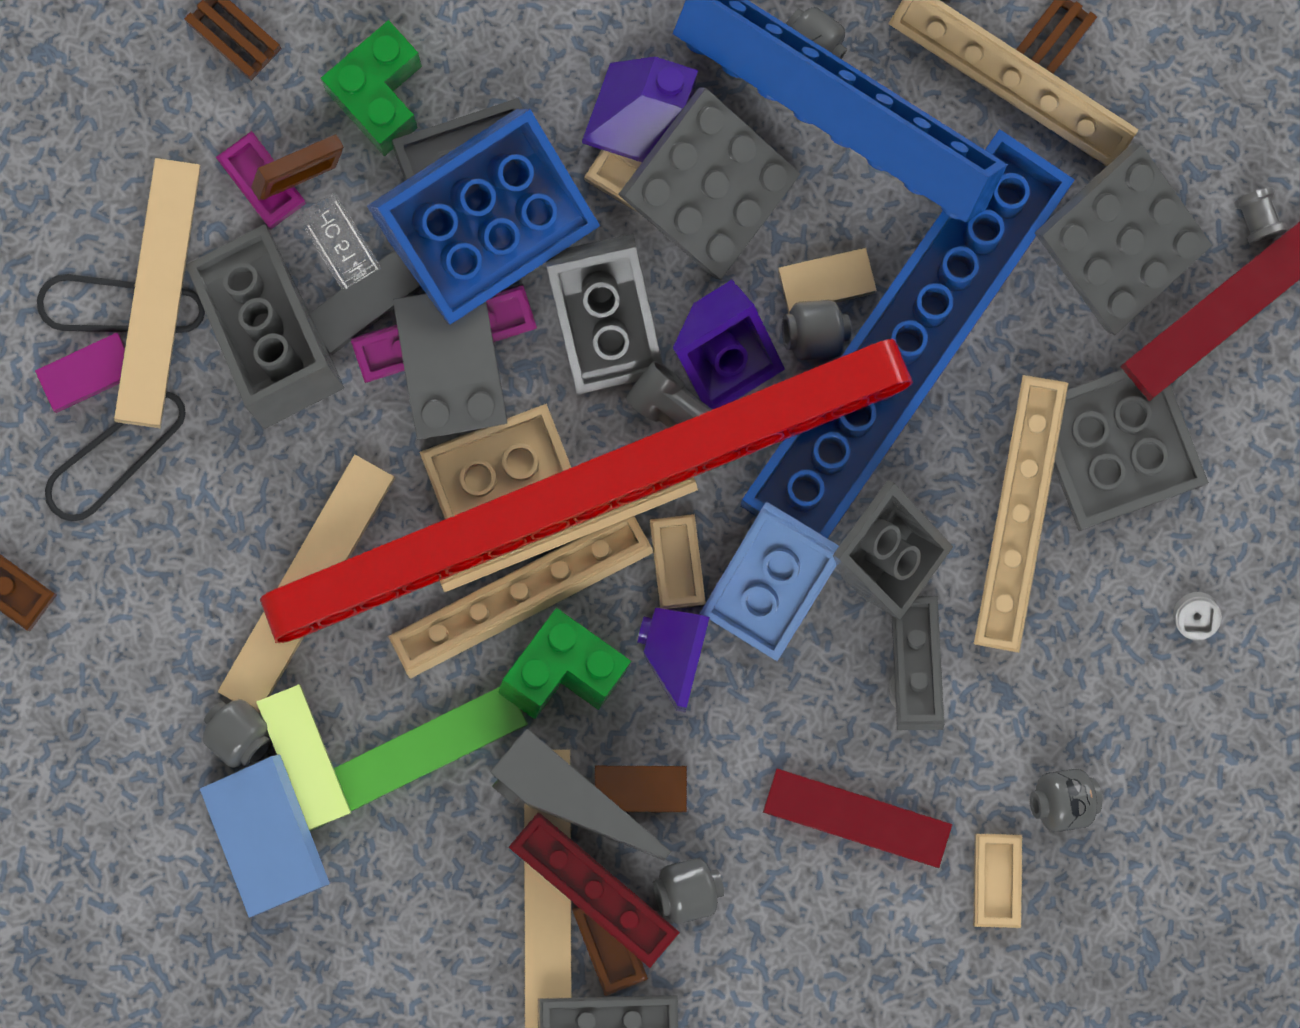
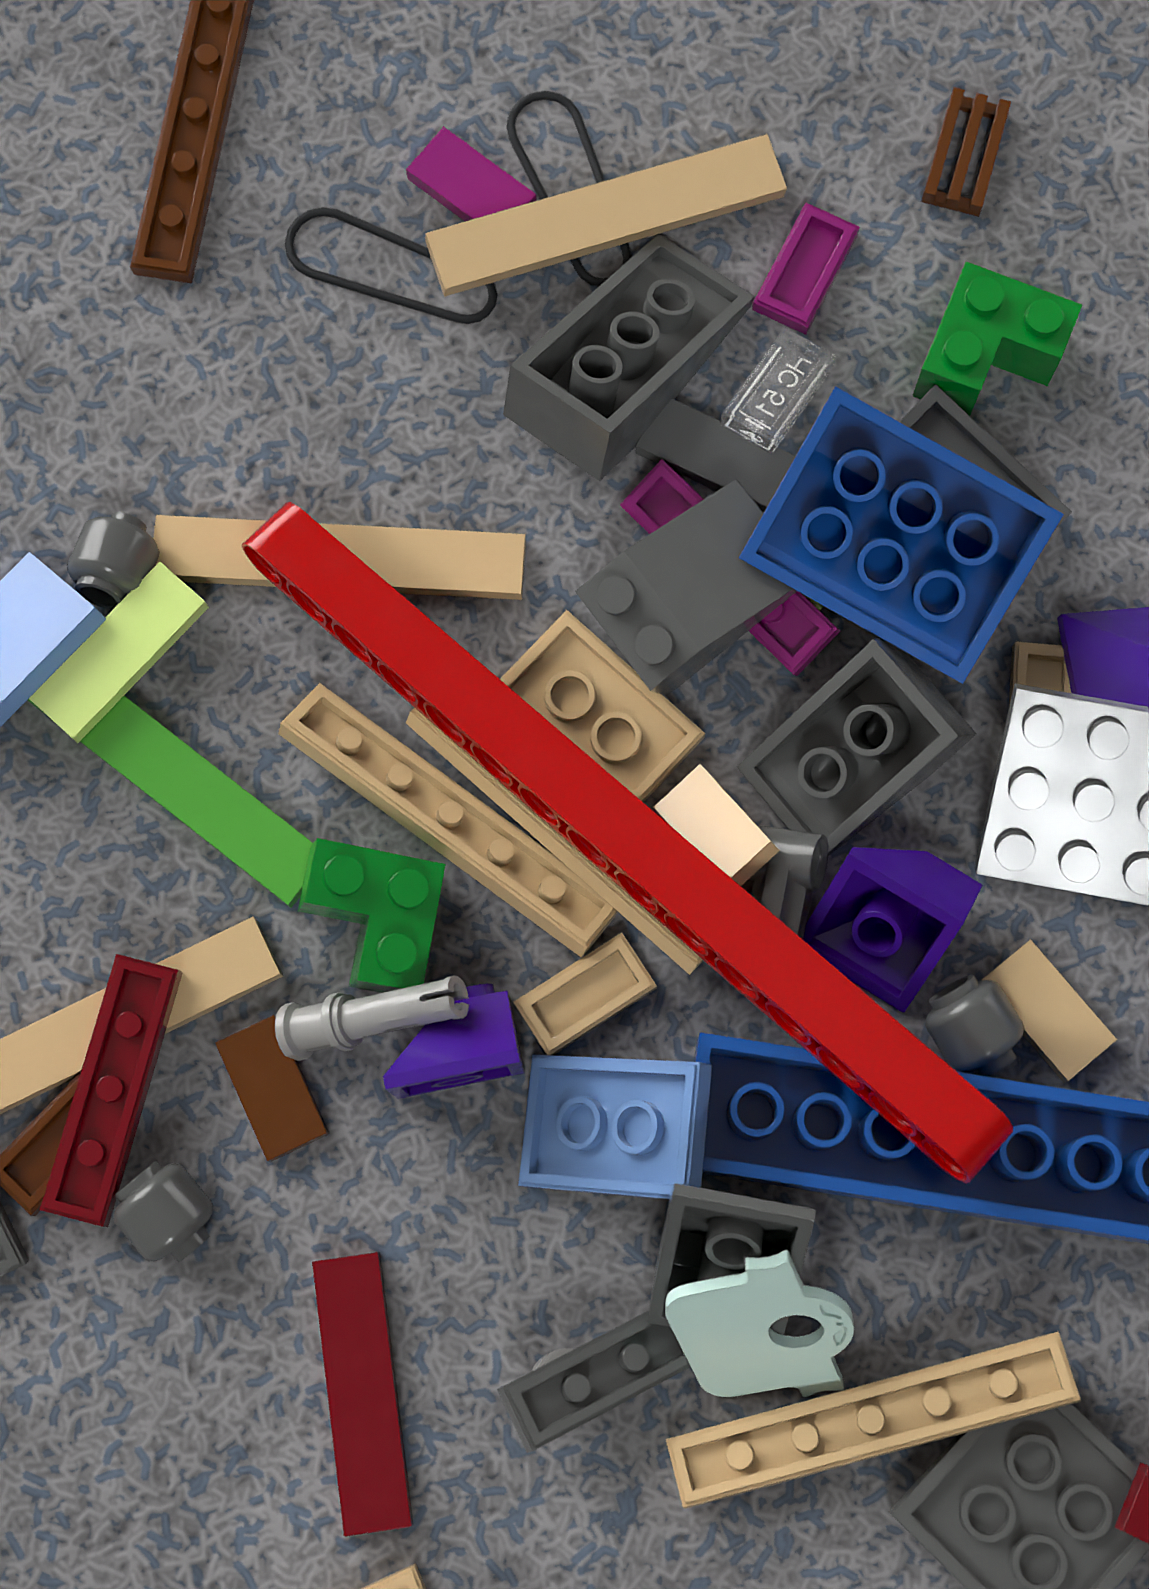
camera: 70 degrees right, 5 degrees down
(297, 167) = (842, 293): reddish brown tile -> none
(549, 784) = (209, 975): dark grey slope -> none
(612, 426) = (716, 825): none -> tile
(624, 718) = (346, 1020): none -> light grey pin
(936, 572) = (729, 1336): none -> light aqua piece

